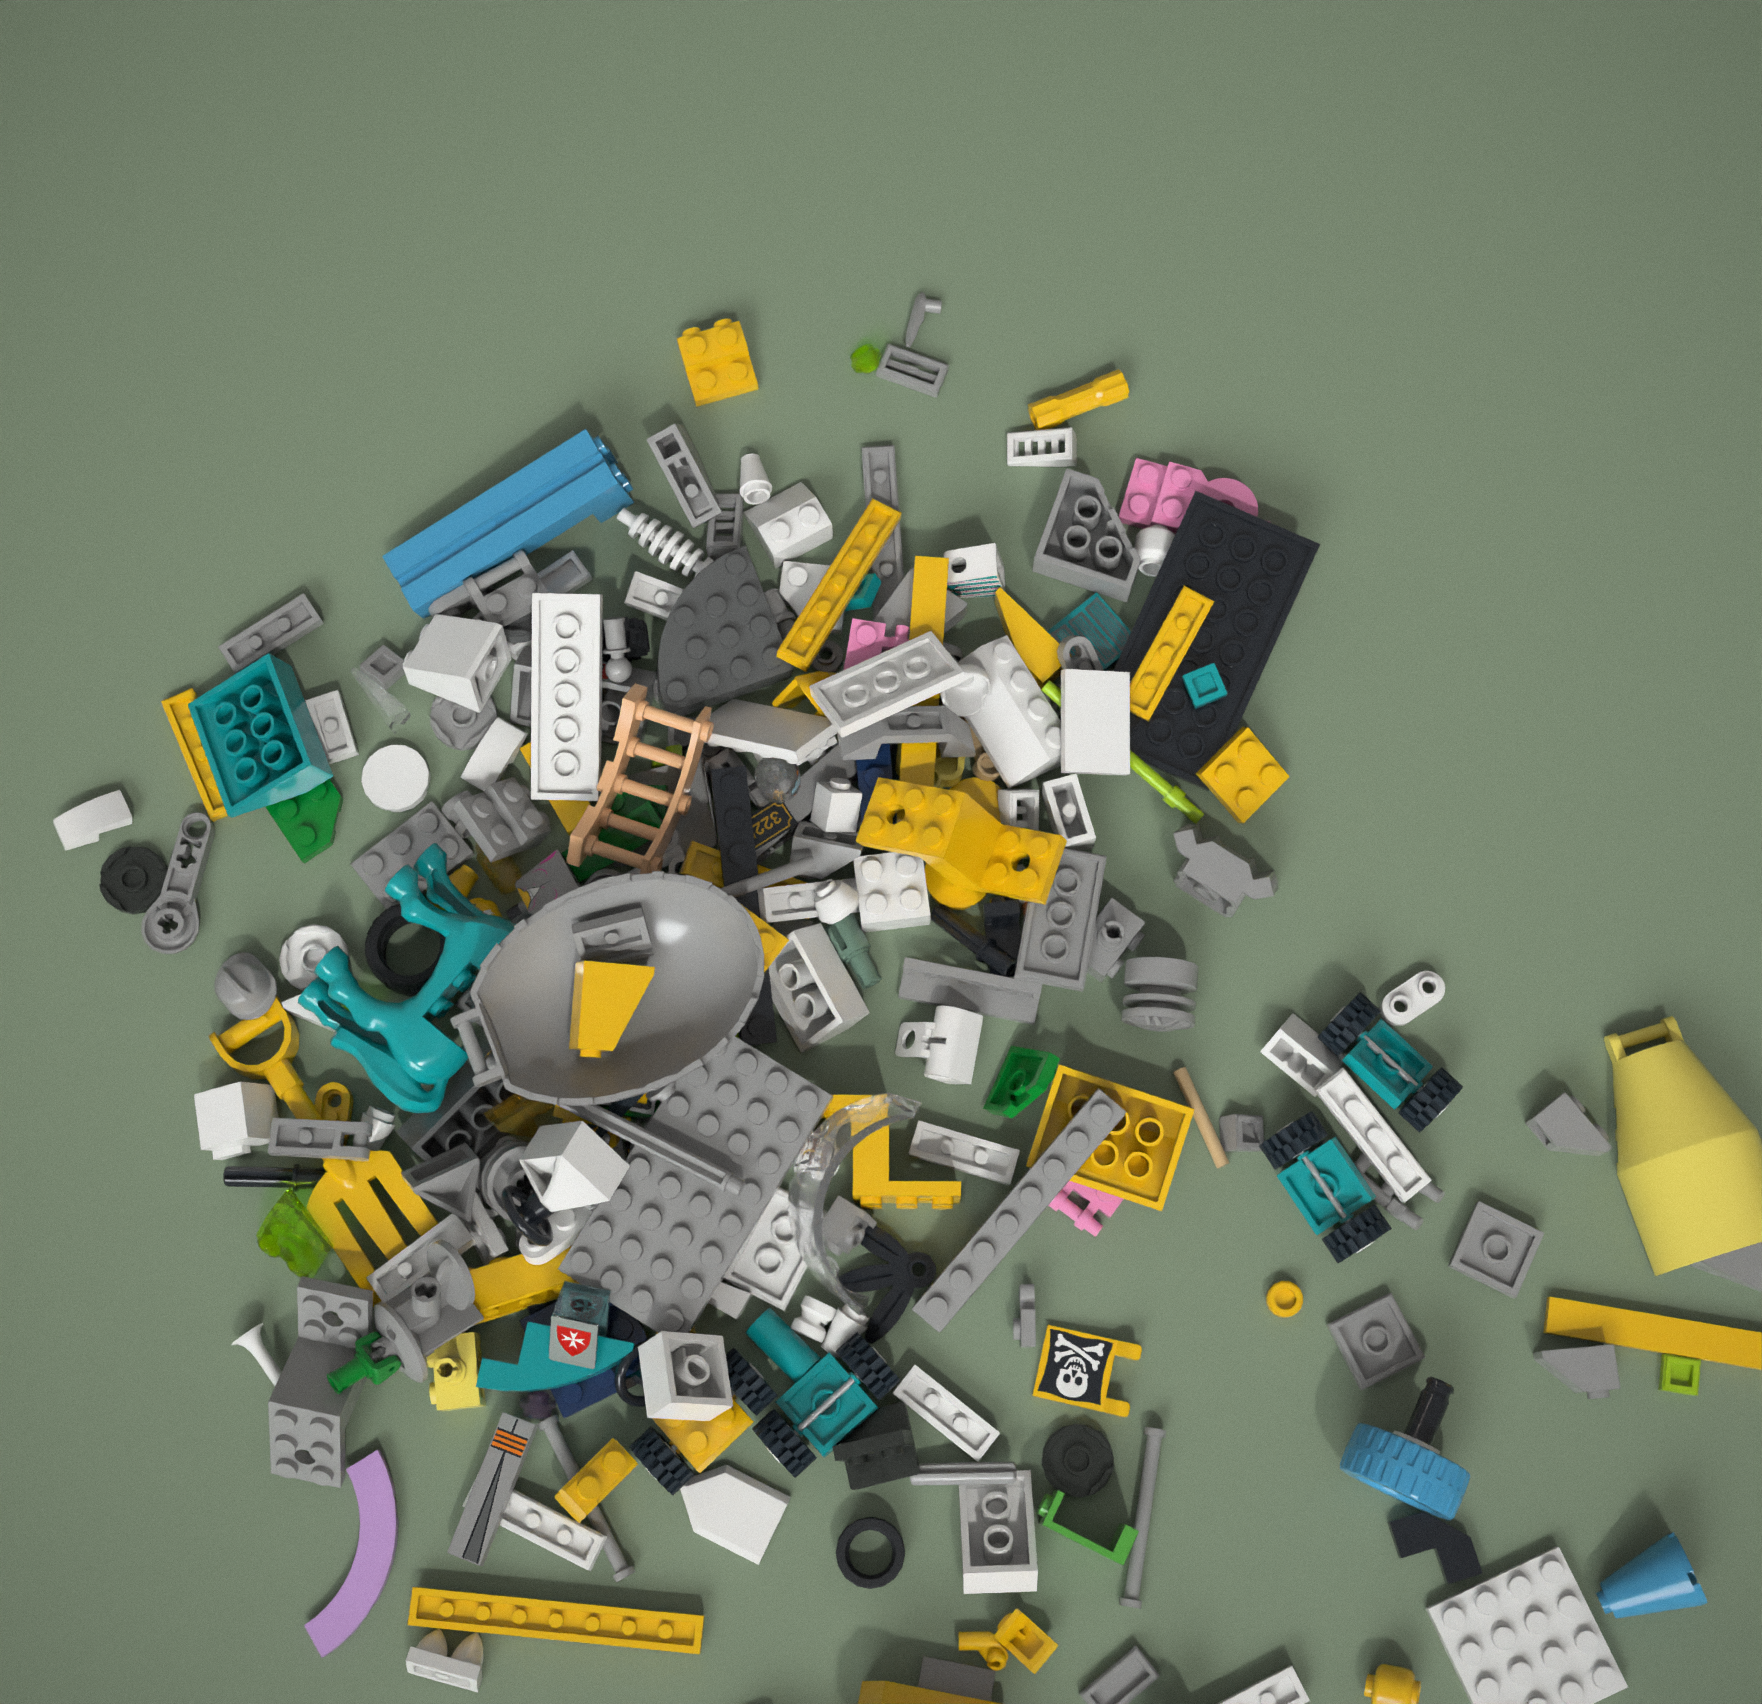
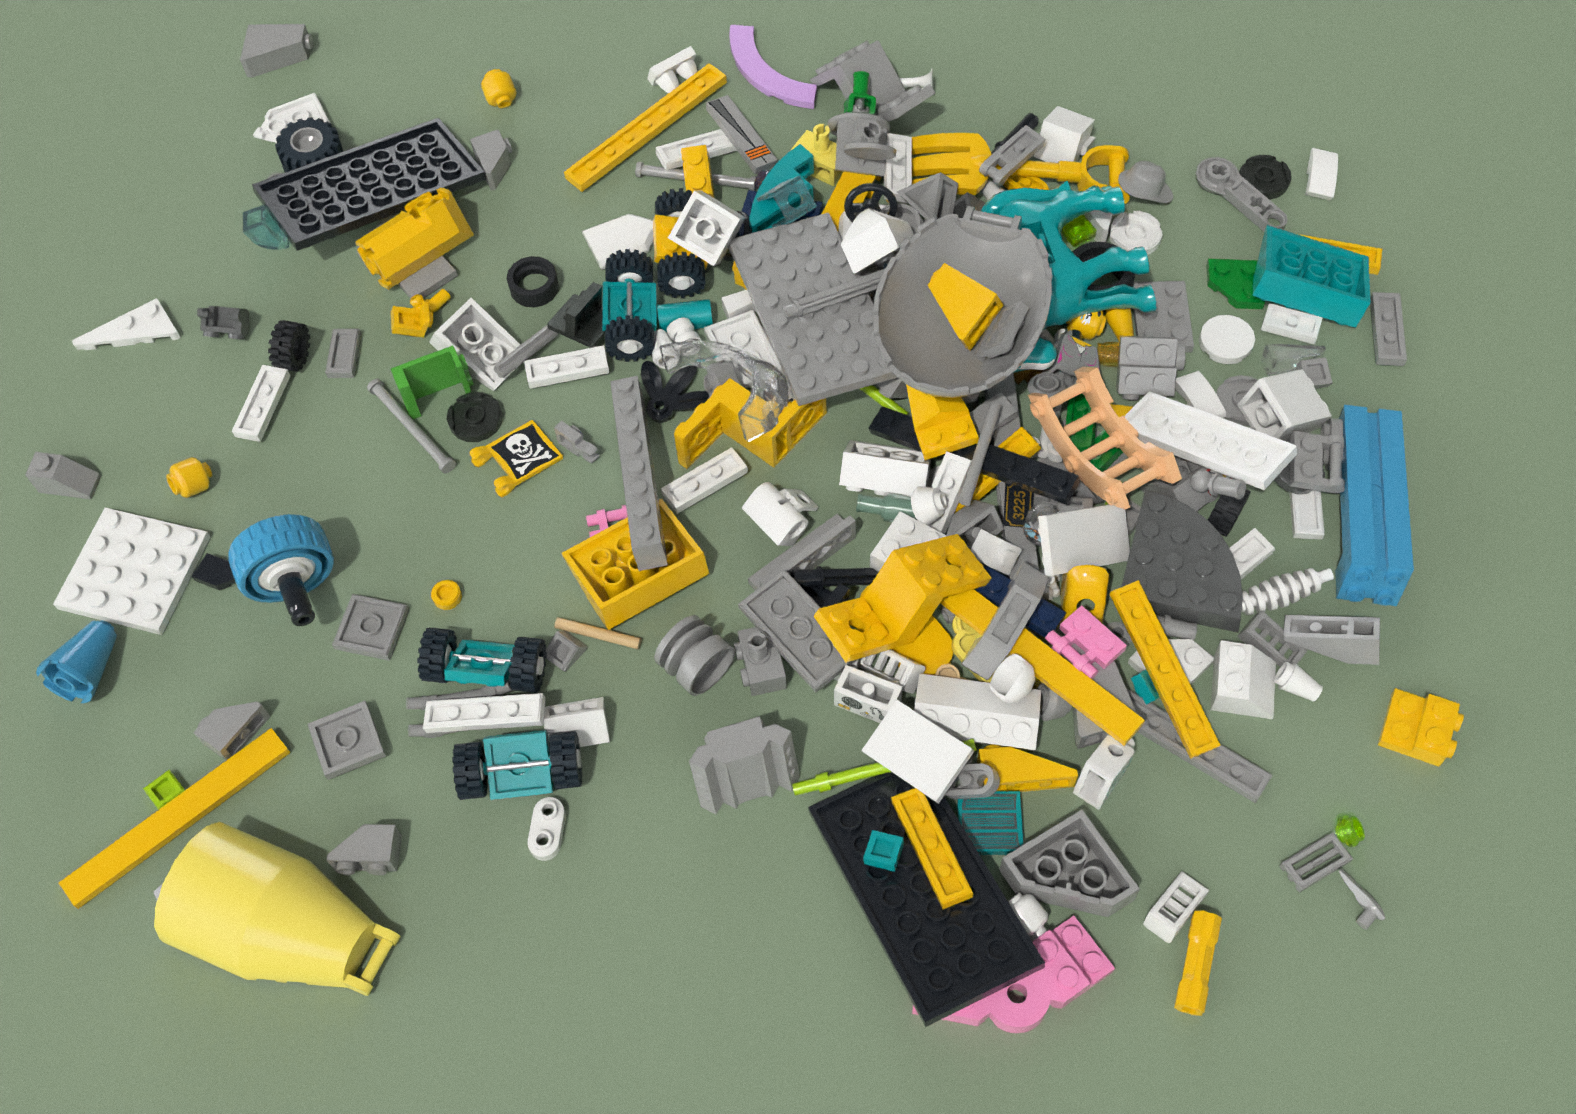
camera: 130 degrees right, 15 degrees down
(294, 1236) = (975, 121): clear neon green slope -> none
(887, 683) = (1052, 615): white plate -> none
(1020, 1080) = (717, 537): green plate -> none
(1242, 774) = (798, 838): yellow plate -> none

